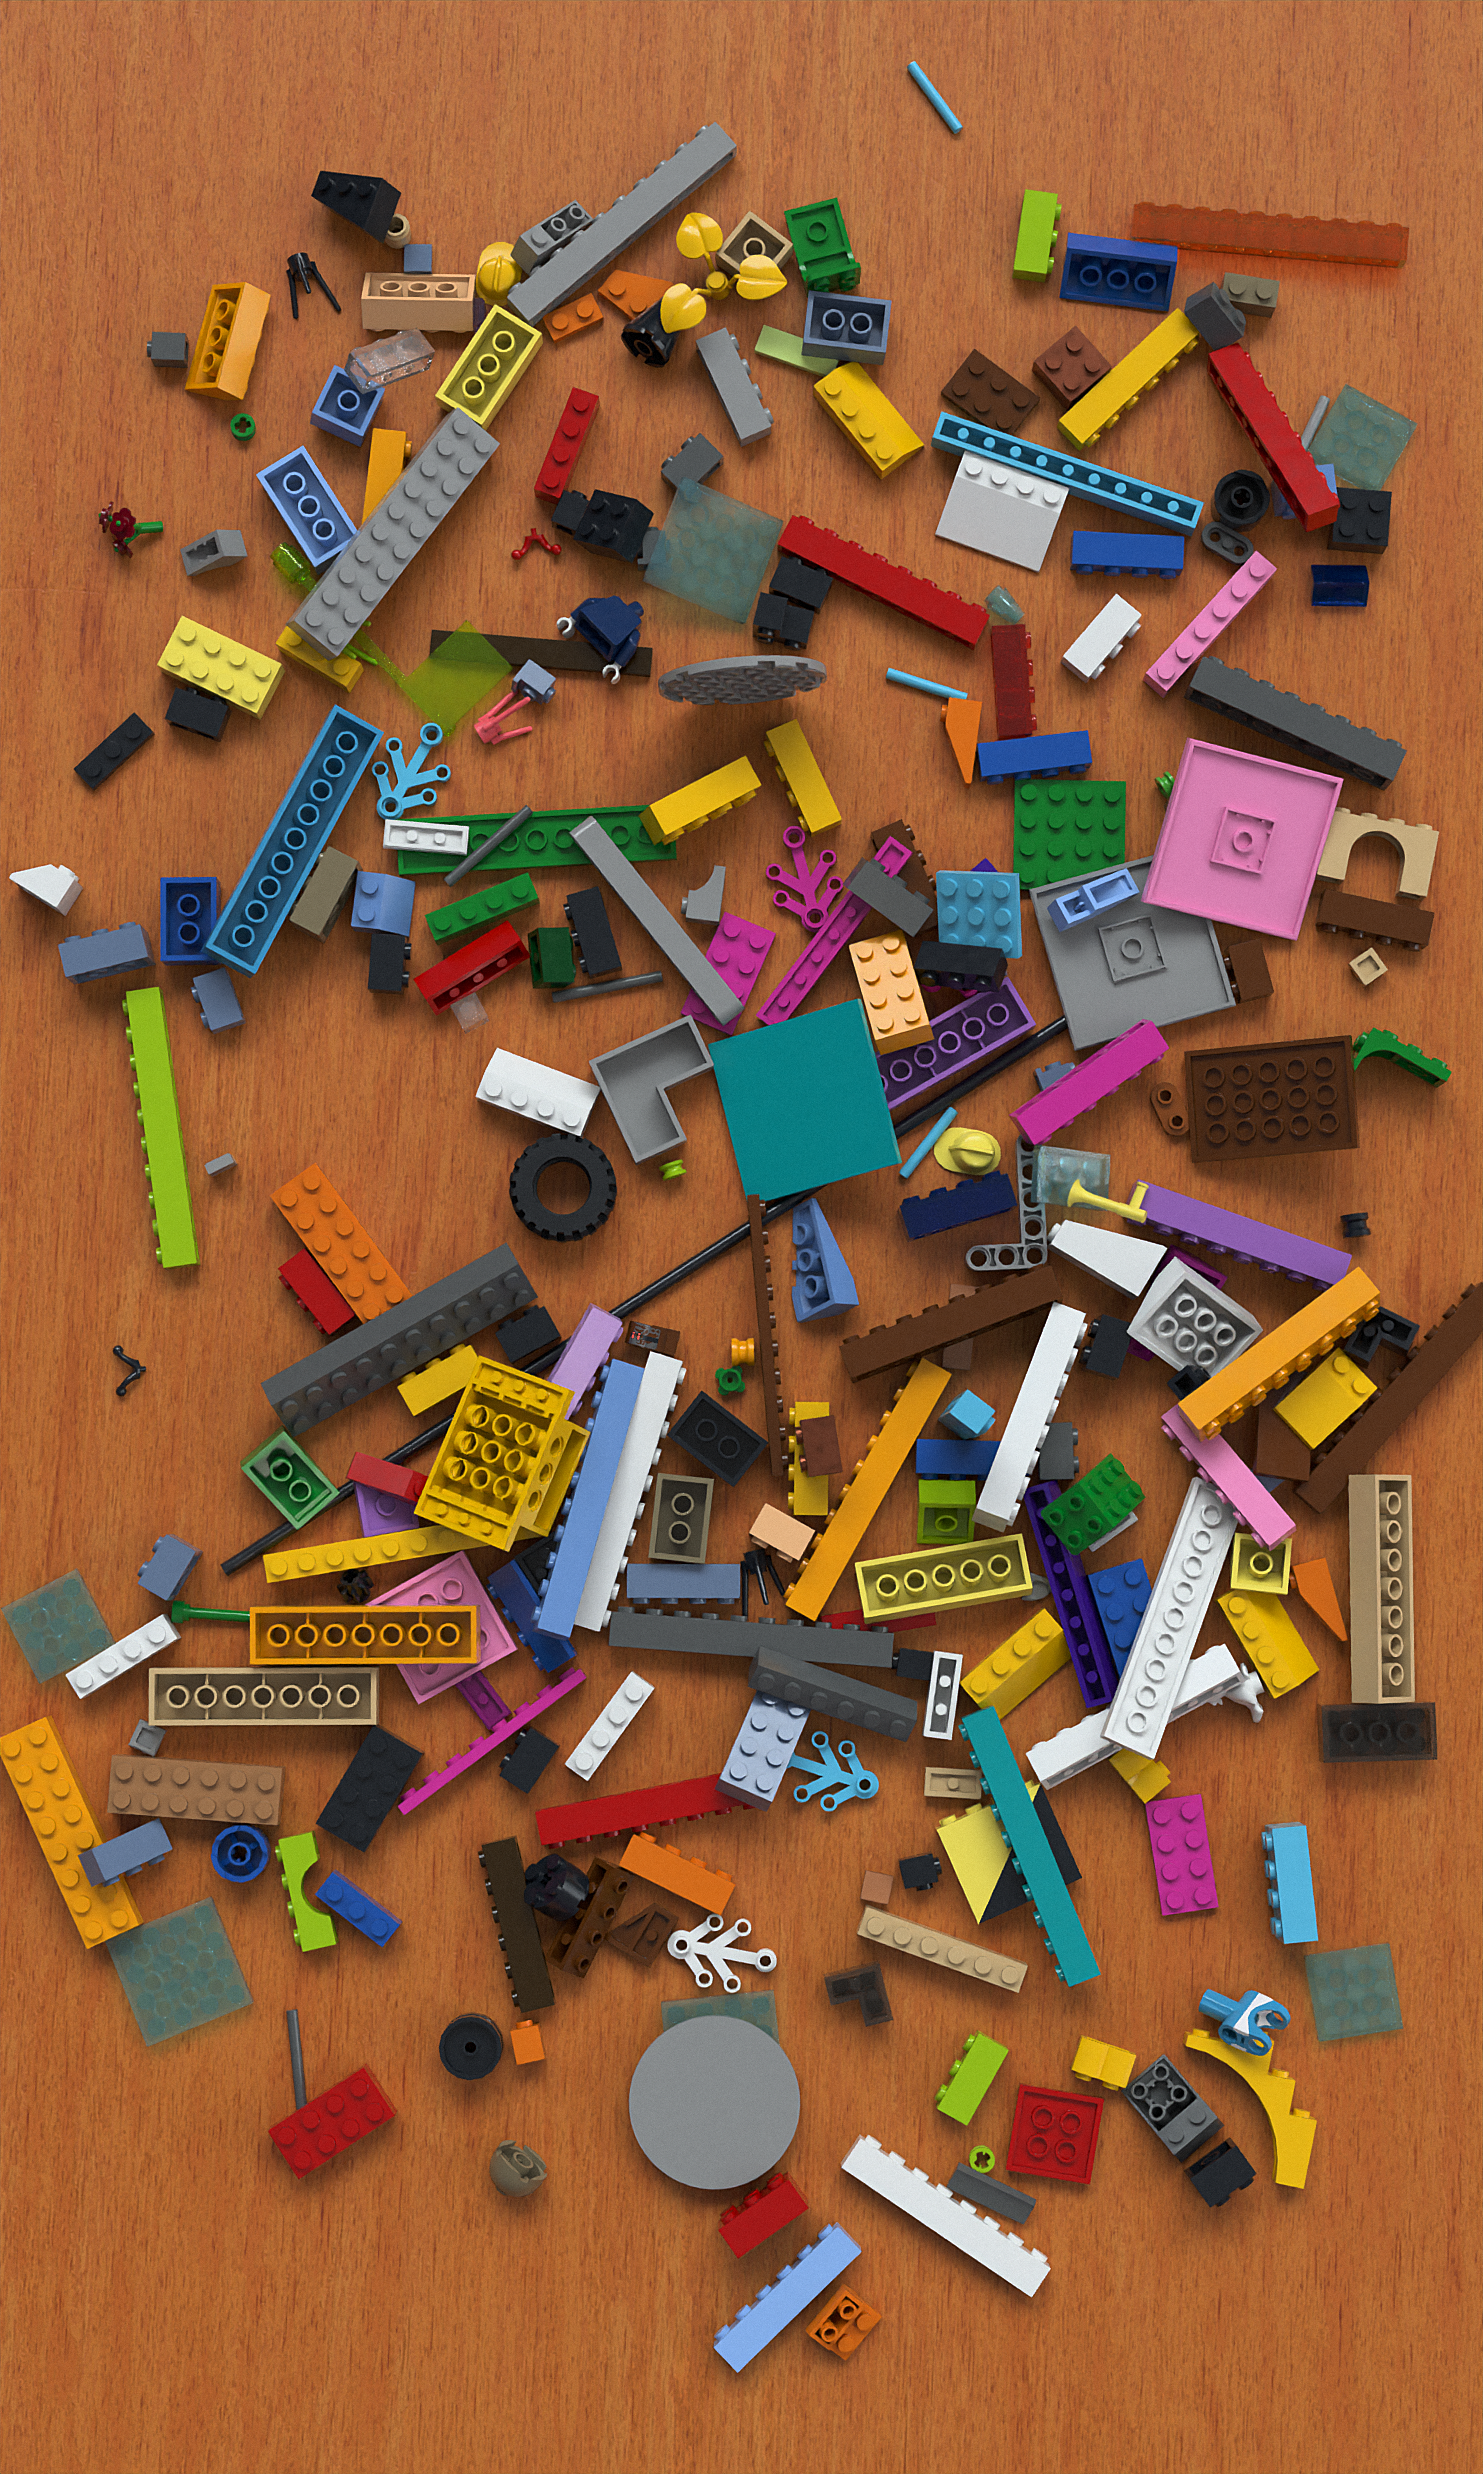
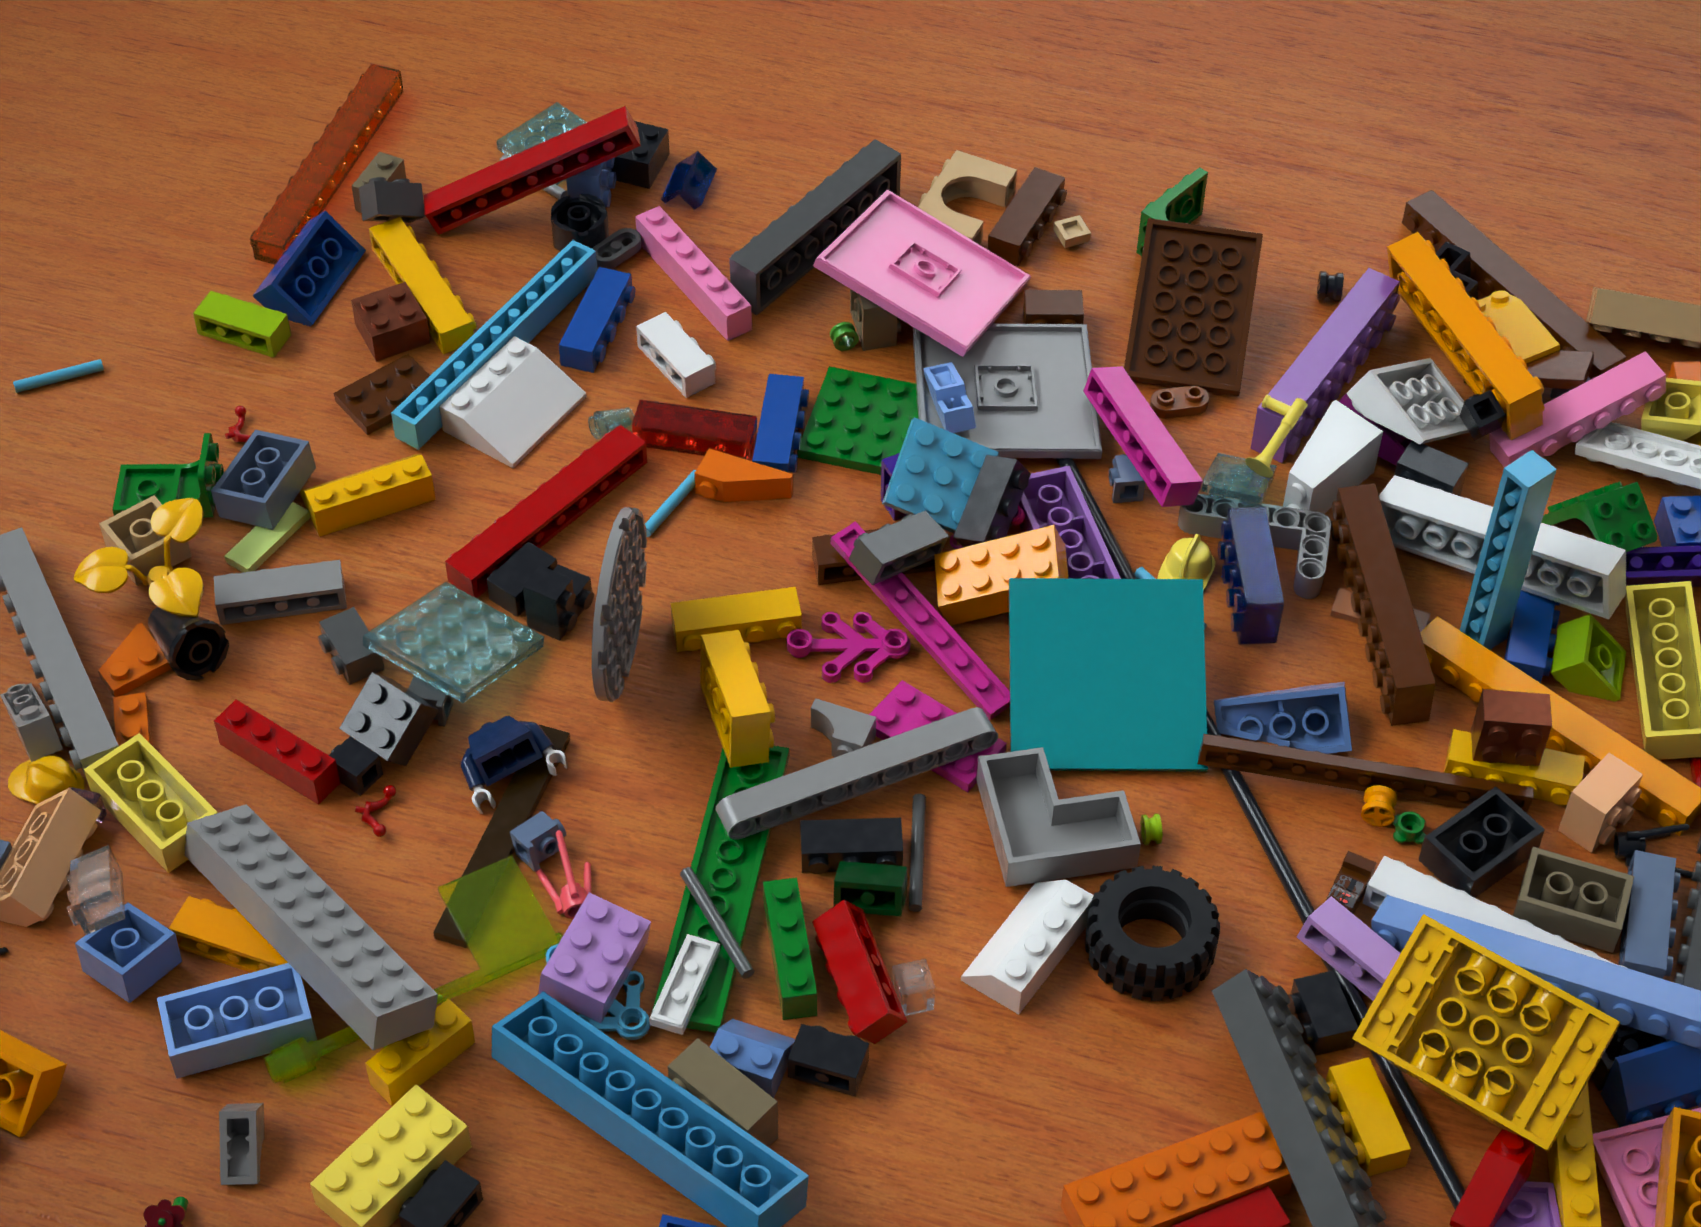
camera: 75 degrees left, 35 degrees down
(236, 421) = (104, 1089): green bush -> none
(426, 761) = (594, 957): none -> lavender brick
(906, 303) = (234, 431): none -> red piece

